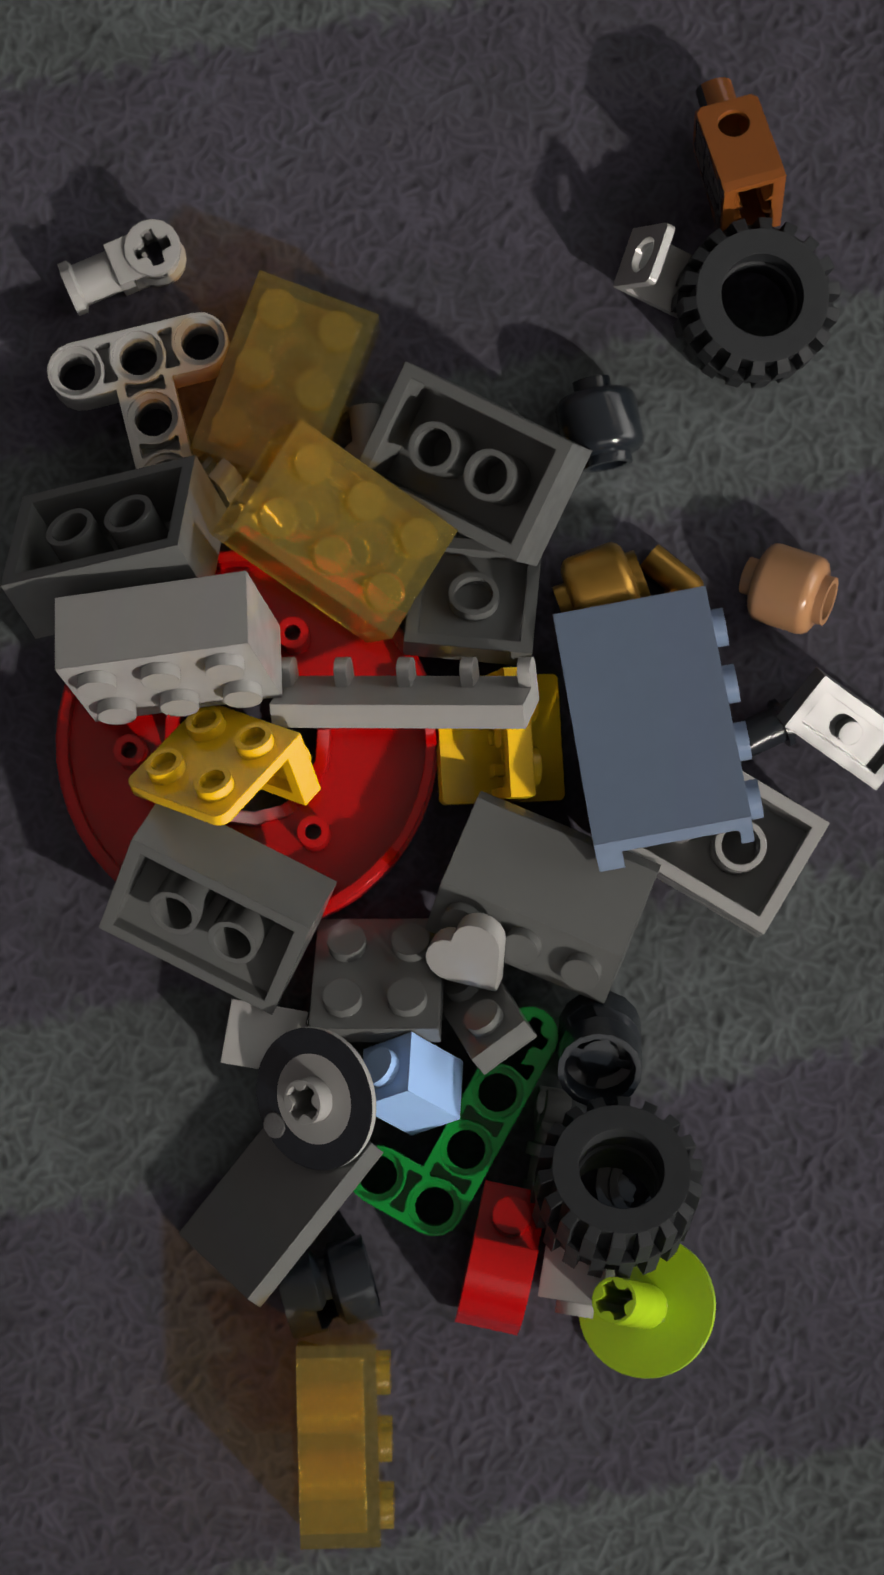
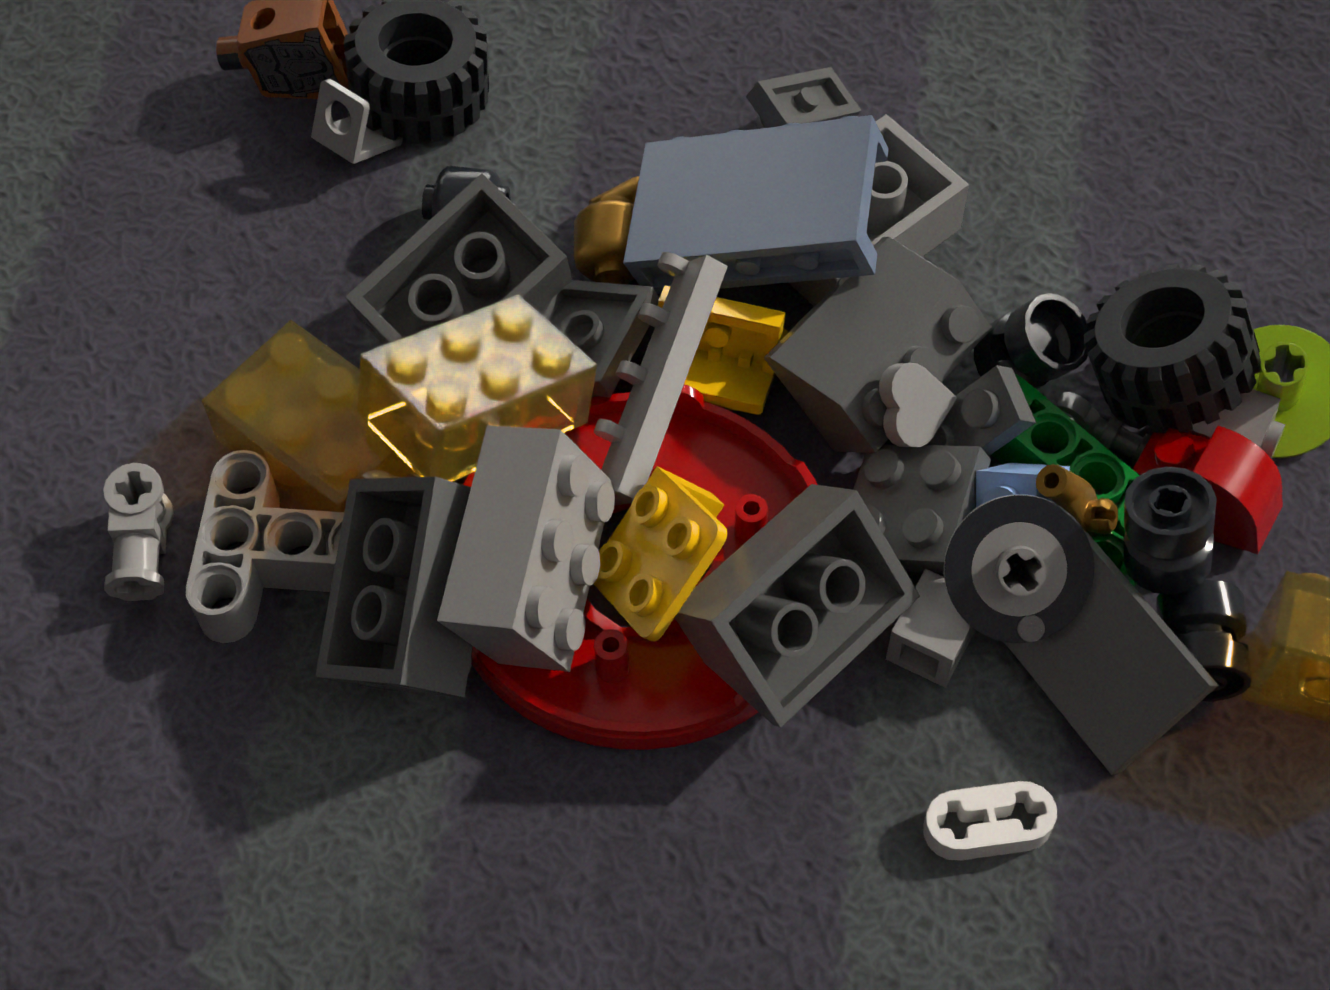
camera: 70 degrees left, 25 degrees down
(84, 1143) = (987, 805): none -> white beam
(390, 1227) = (1169, 530): none -> black wheel
(413, 1135) = (1078, 499): none -> pearl gold arm
(789, 588) = (667, 110): medium nougat head -> none

